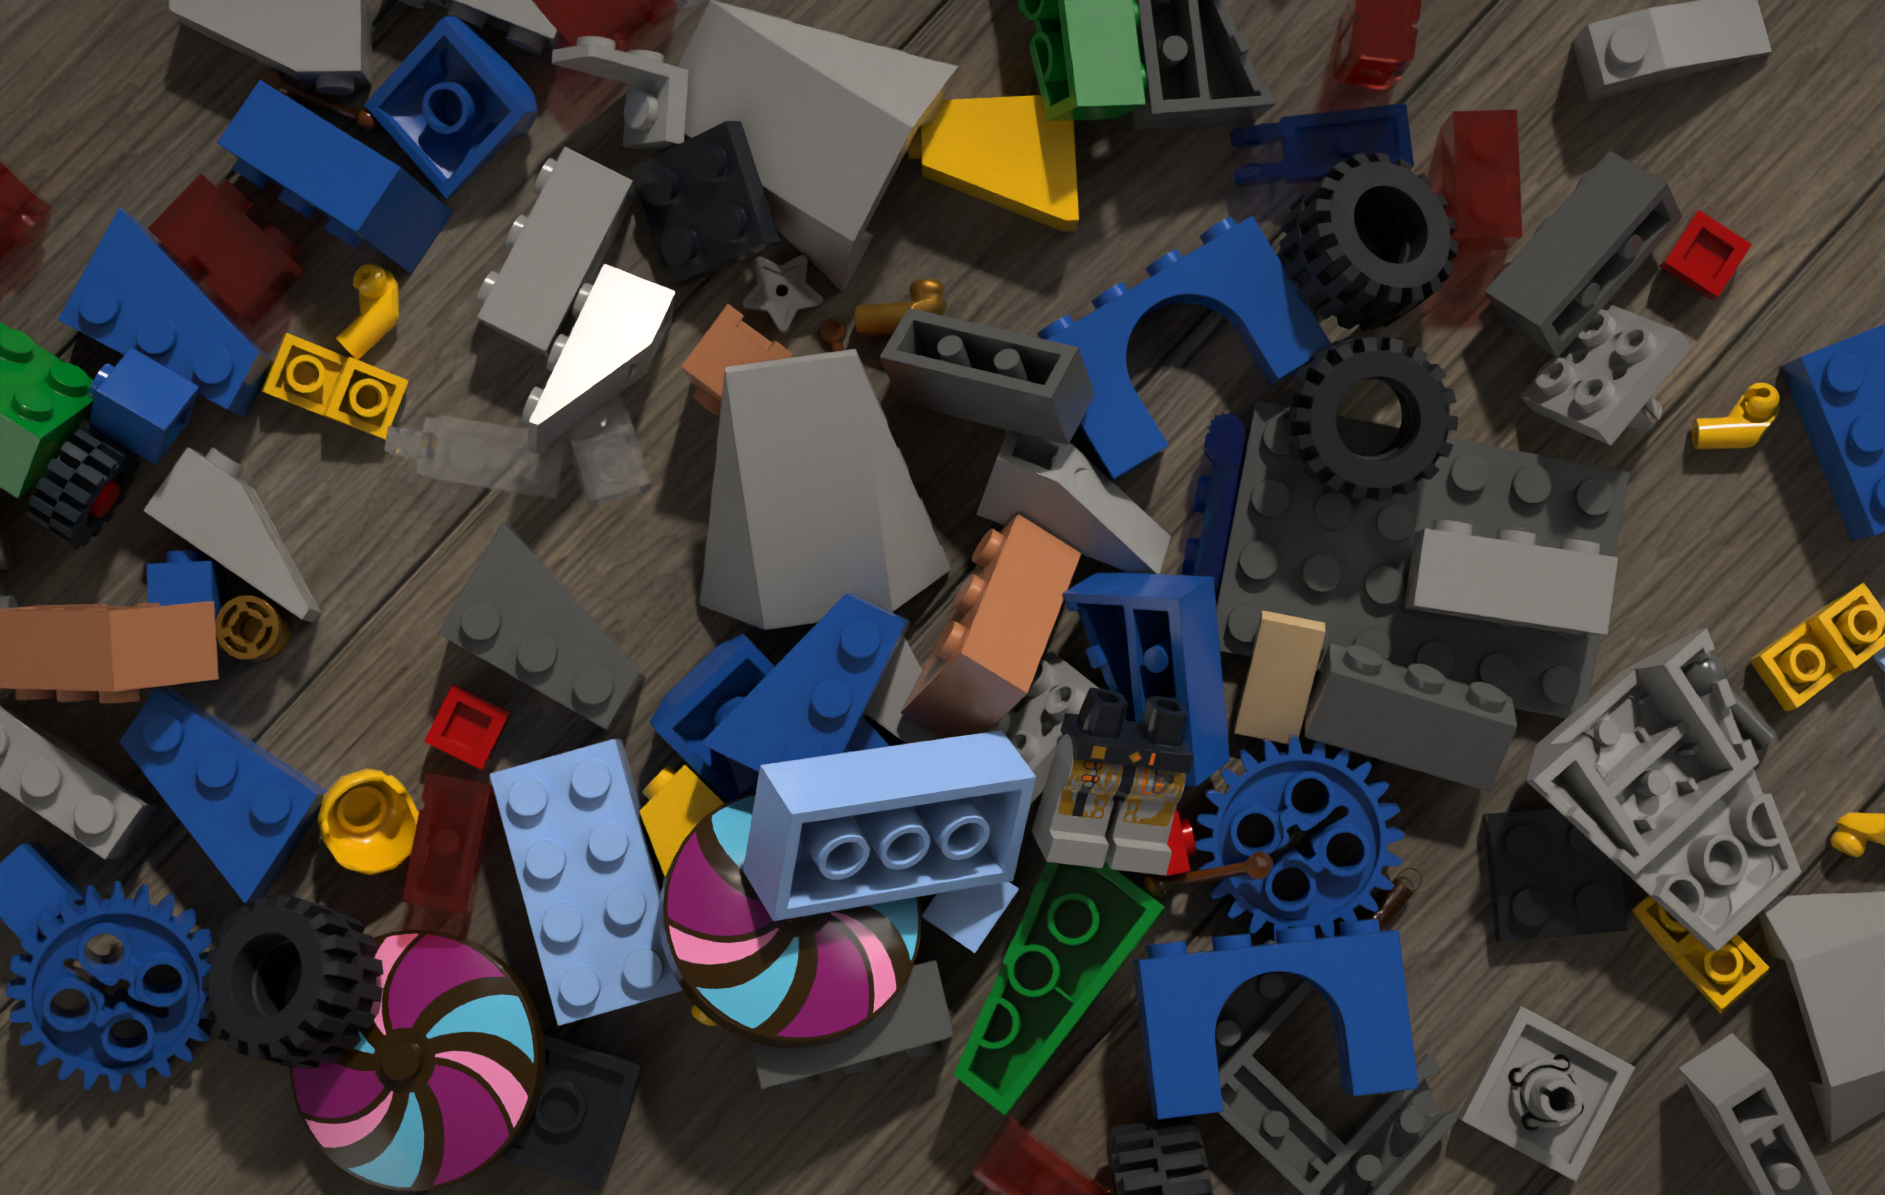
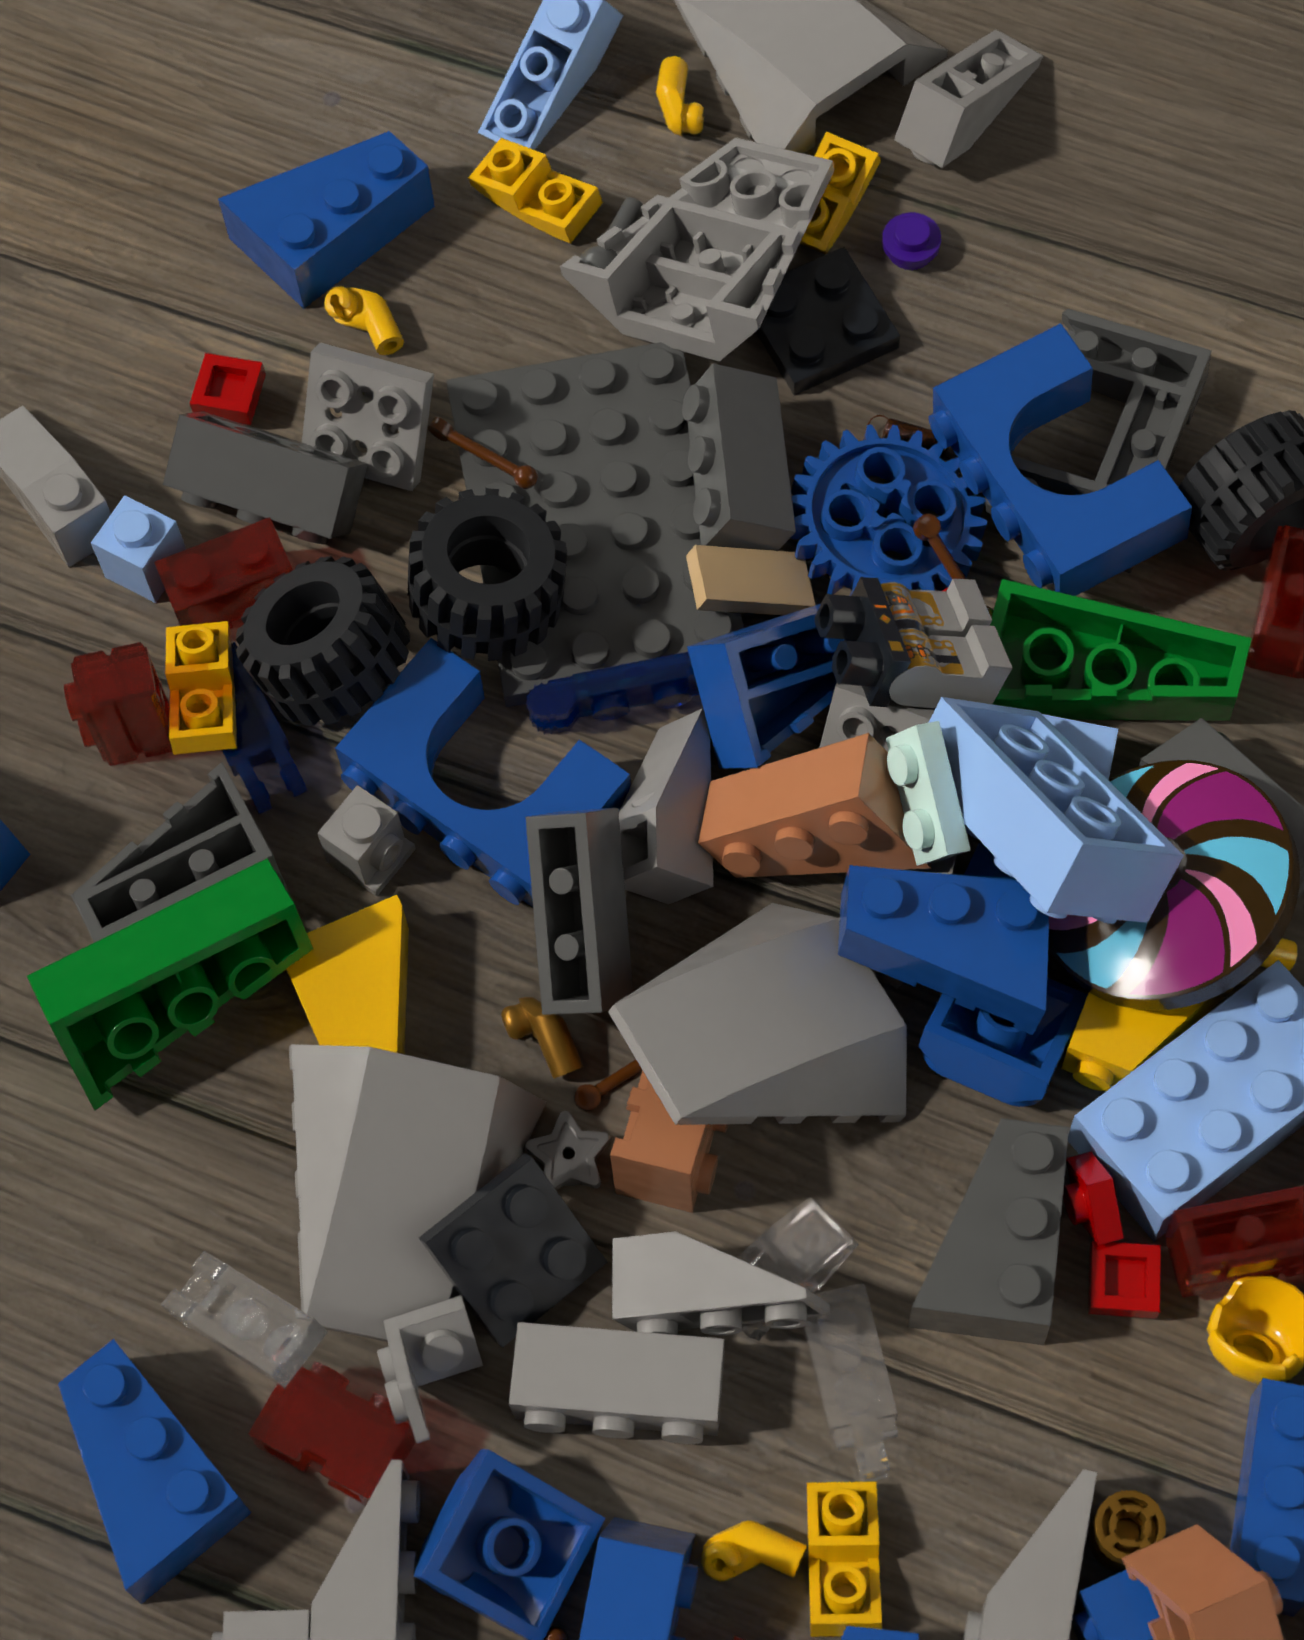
camera: 100 degrees left, 20 degrees down
(545, 726) = (1092, 1198): none -> red plate
(970, 727) = (927, 793): none -> light aqua plate
(1154, 216) = (365, 841): none -> light grey brick
(1370, 114) = (201, 687): none -> yellow slope
(1479, 503) = (524, 476): none -> reddish brown hinge
(1511, 579) = (584, 421): light grey brick -> none
(1552, 107) = (132, 543): none -> light blue brick
(1568, 1103) = (1012, 241): light grey plate -> none
(1610, 1003) = (911, 240): none -> dark purple plate

